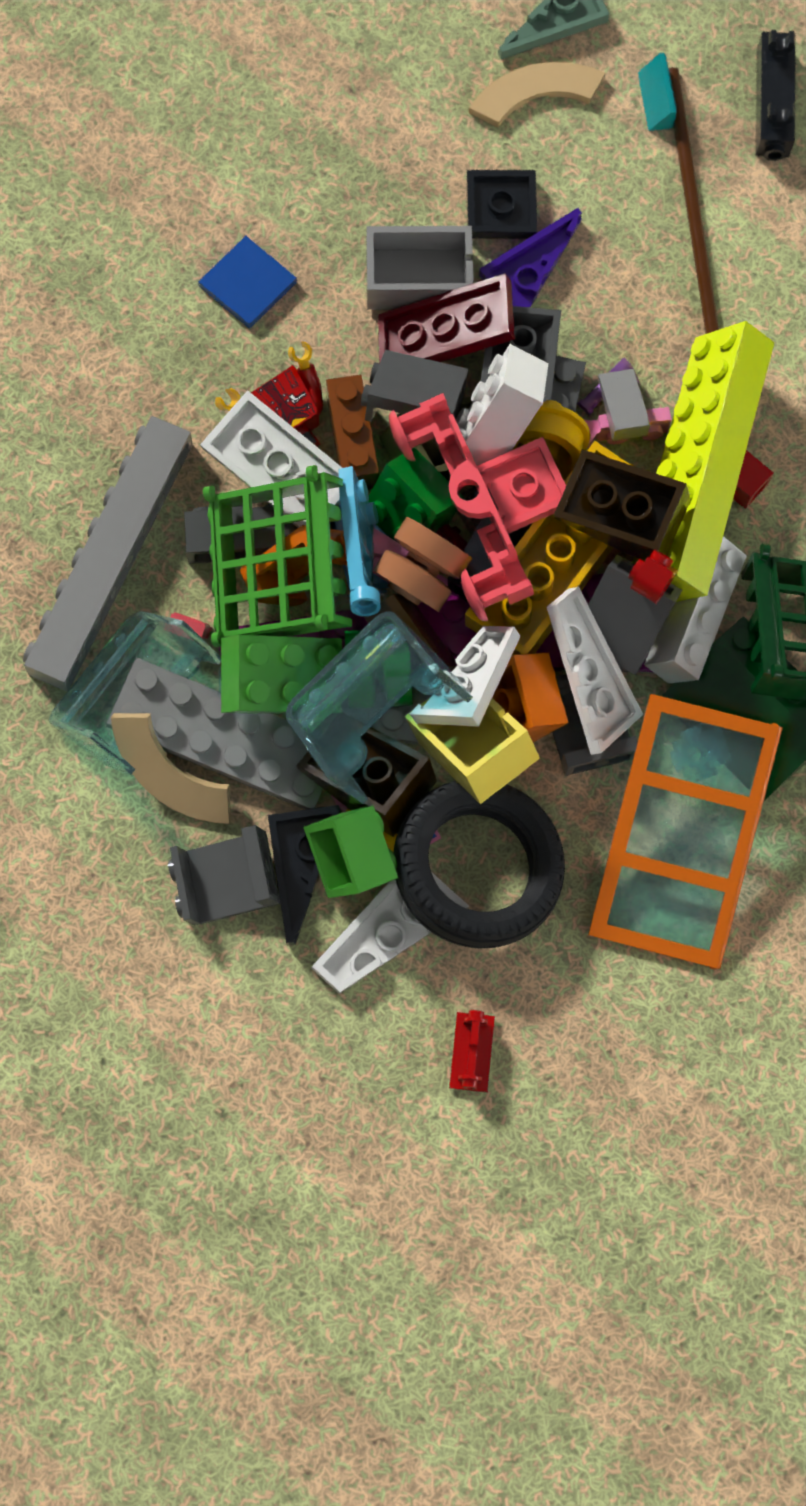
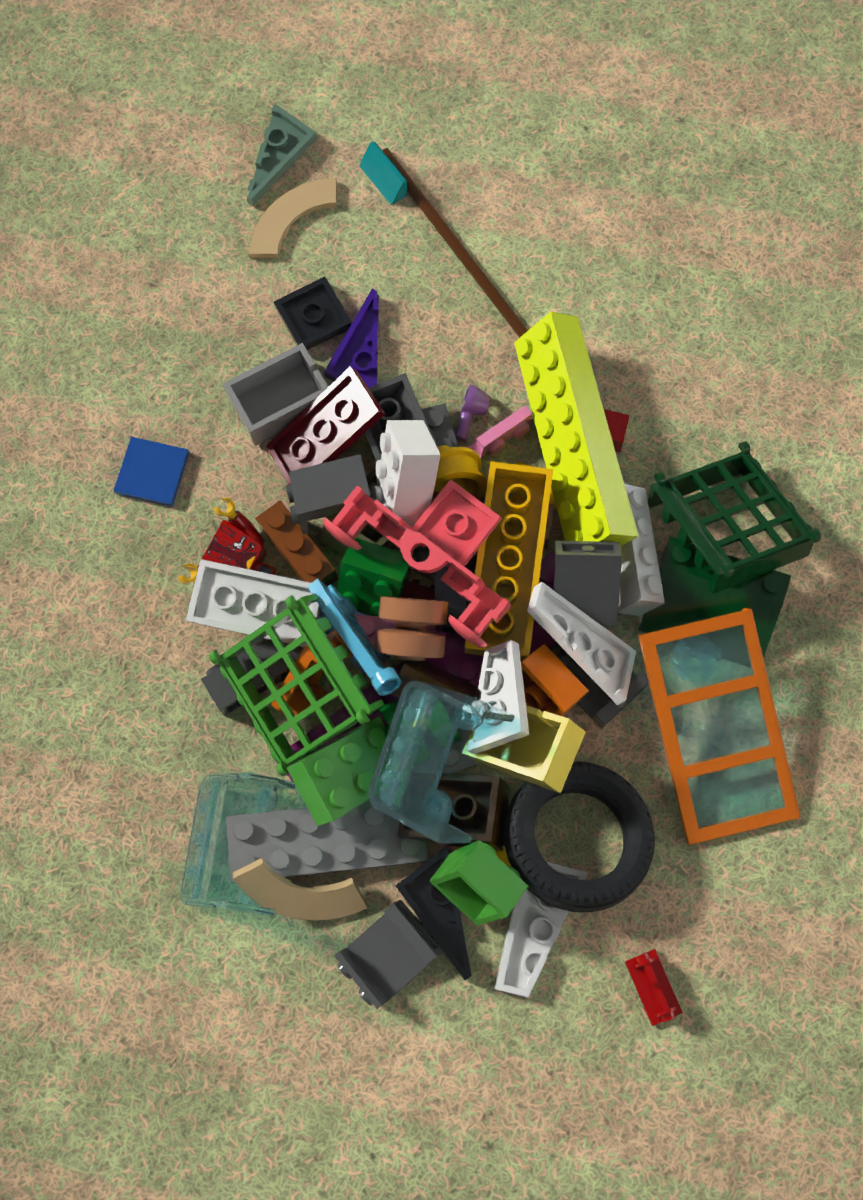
camera: 20 degrees left, 0 degrees up
(108, 554) = (158, 744): light grey brick -> none
(201, 628) = (255, 765): coral tile -> none
(623, 505) = (542, 501): dark brown slope -> none
(624, 405) = (491, 421): light grey slope -> none
(652, 576) = (598, 545): red plate -> none
(775, 95) = (471, 132): black brick -> none

